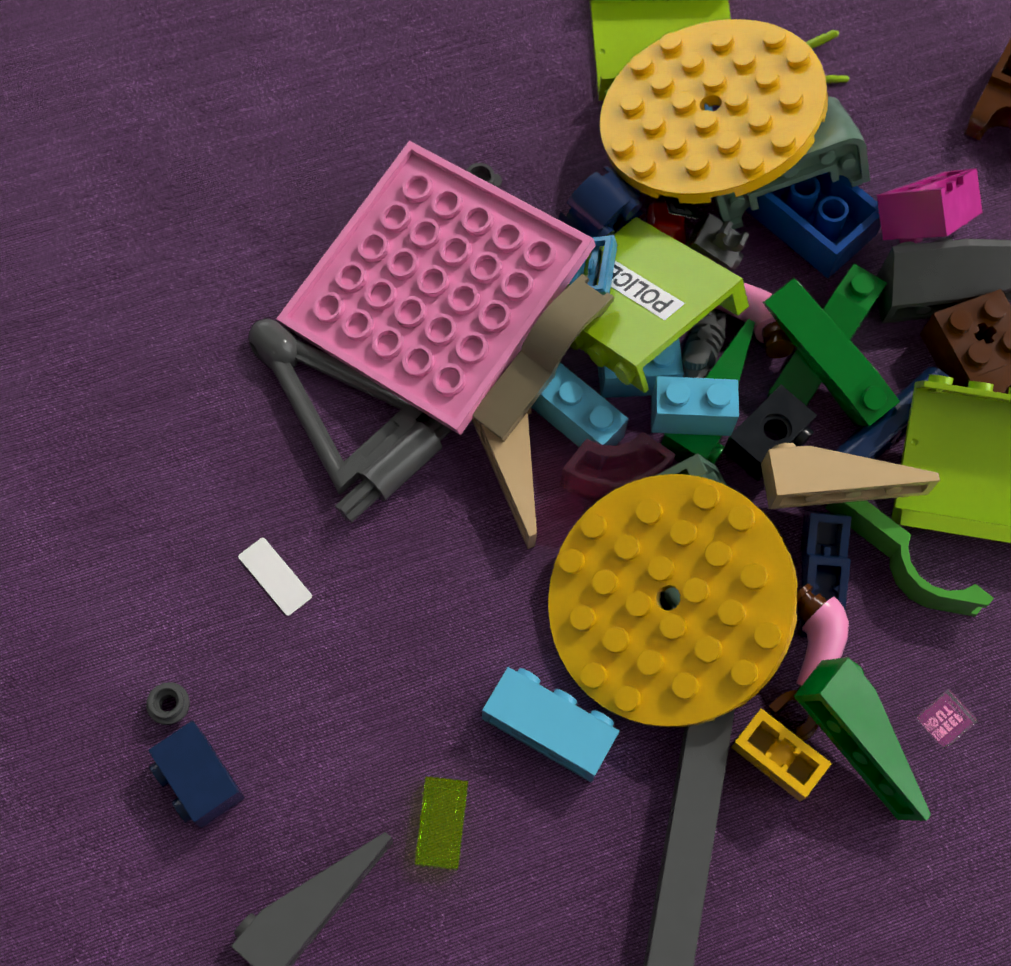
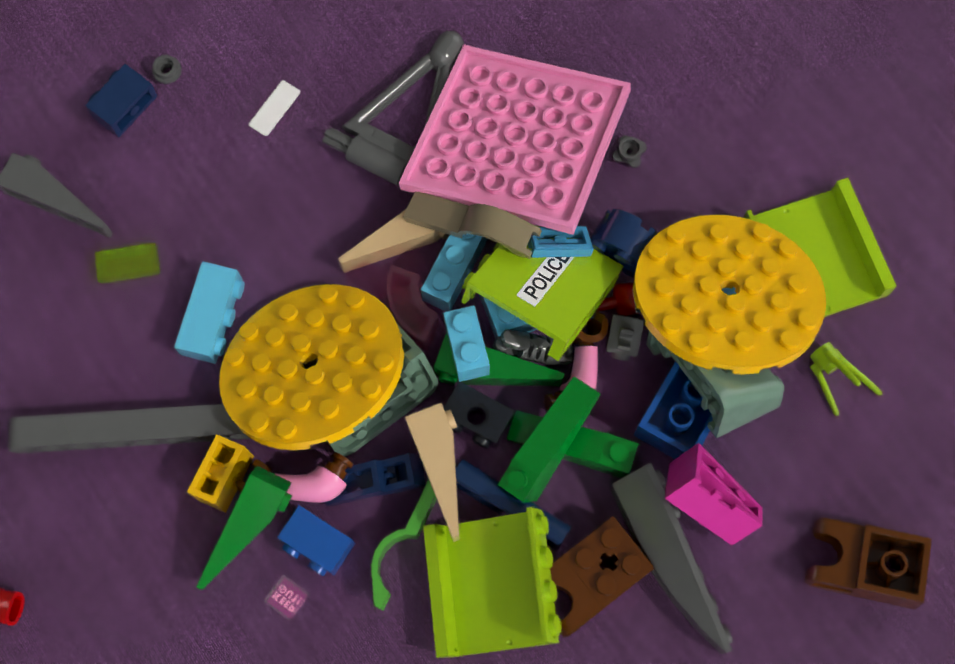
camera: 80 degrees right, 5 degrees up
(894, 655) = (316, 541): none -> blue brick

